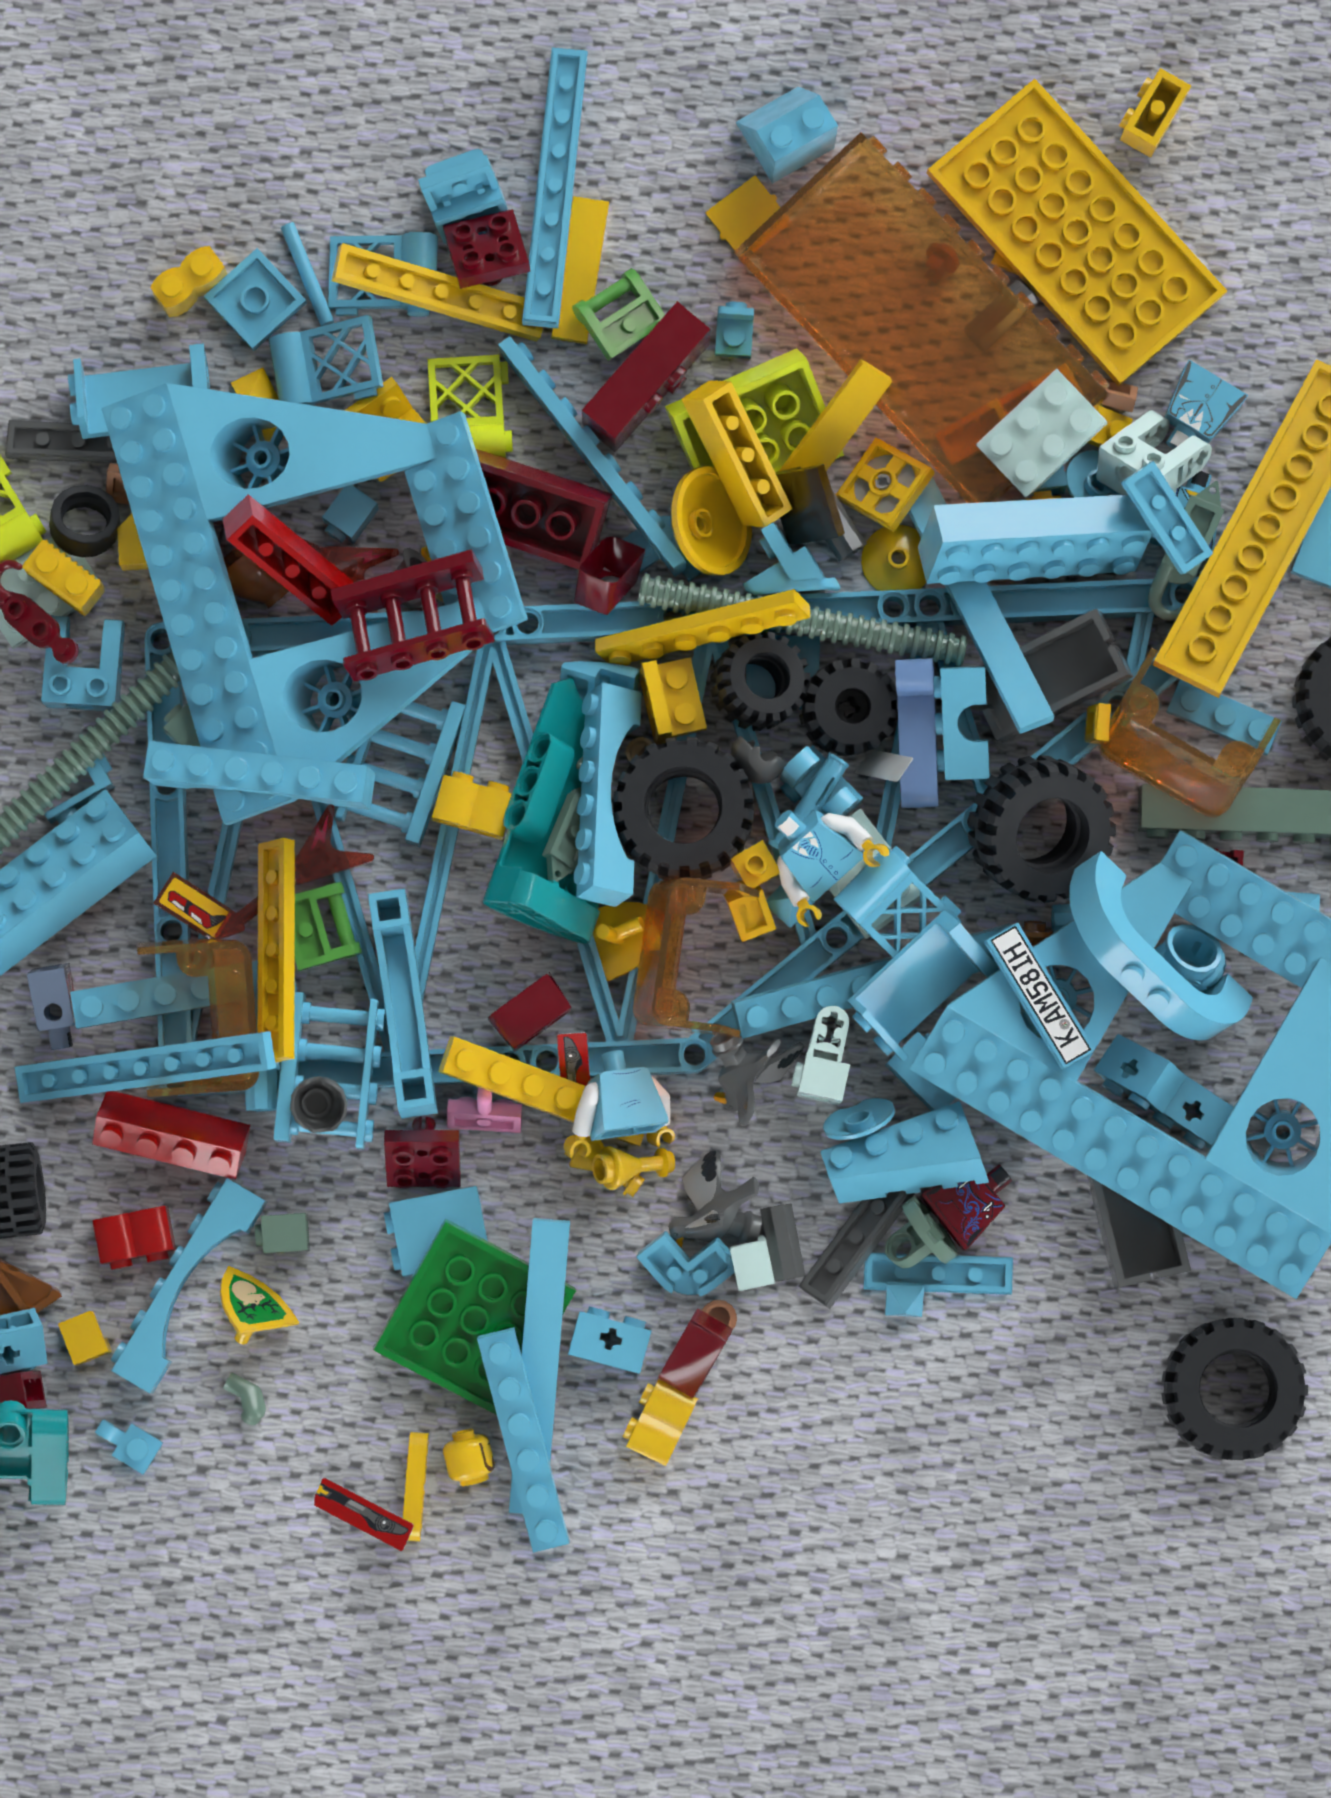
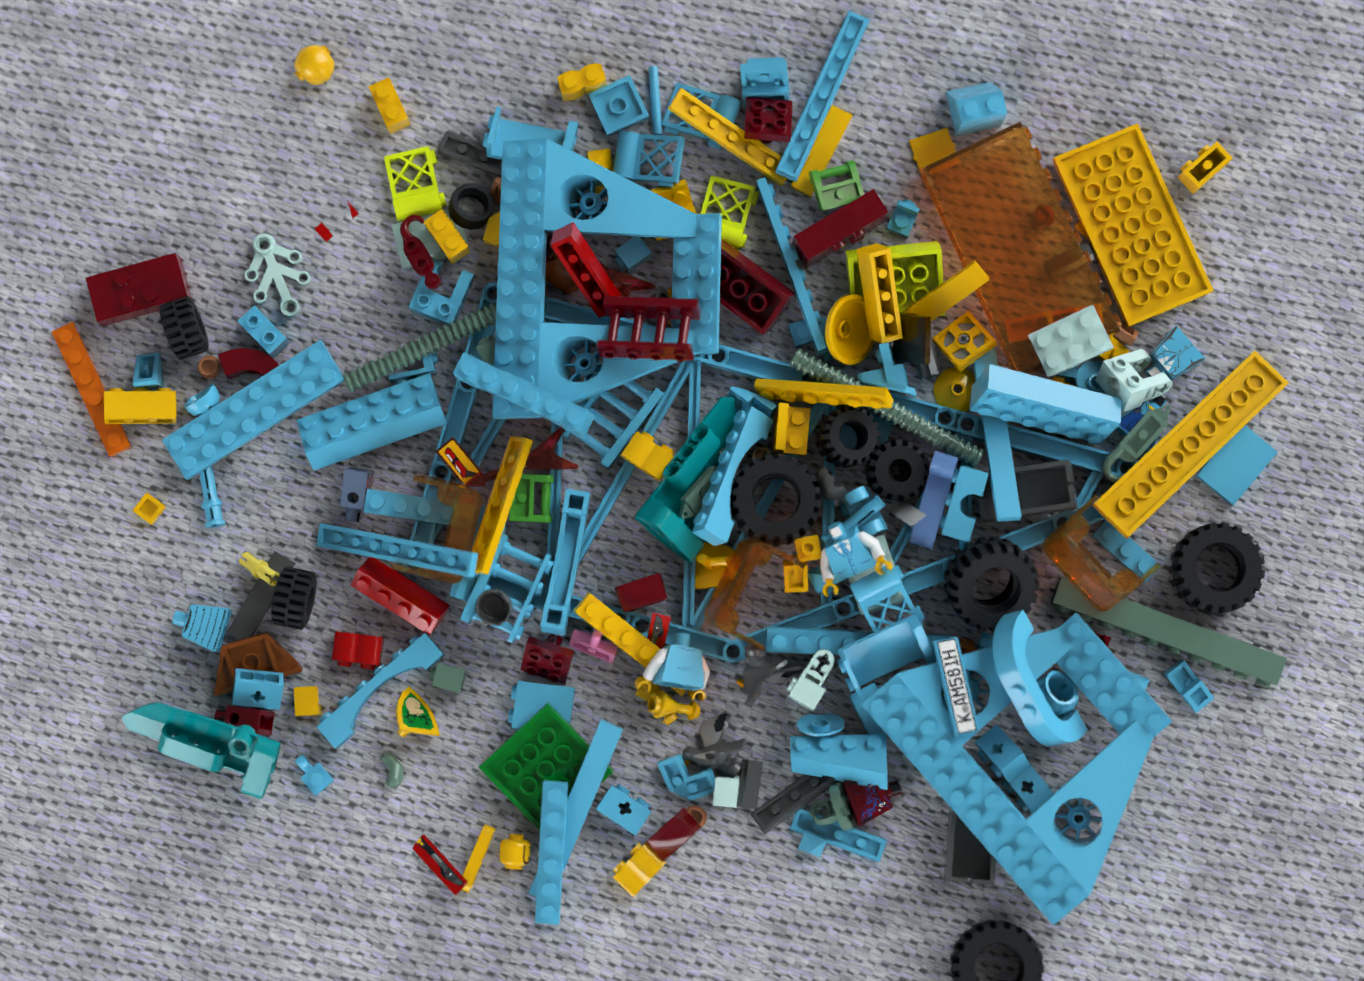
camera: 25 degrees right, 0 degrees up
(622, 560) = (788, 335): dark red piece -> none
(1097, 723) = (1046, 530): yellow tile -> none
(1166, 517) = (1130, 418): medium azure plate -> none

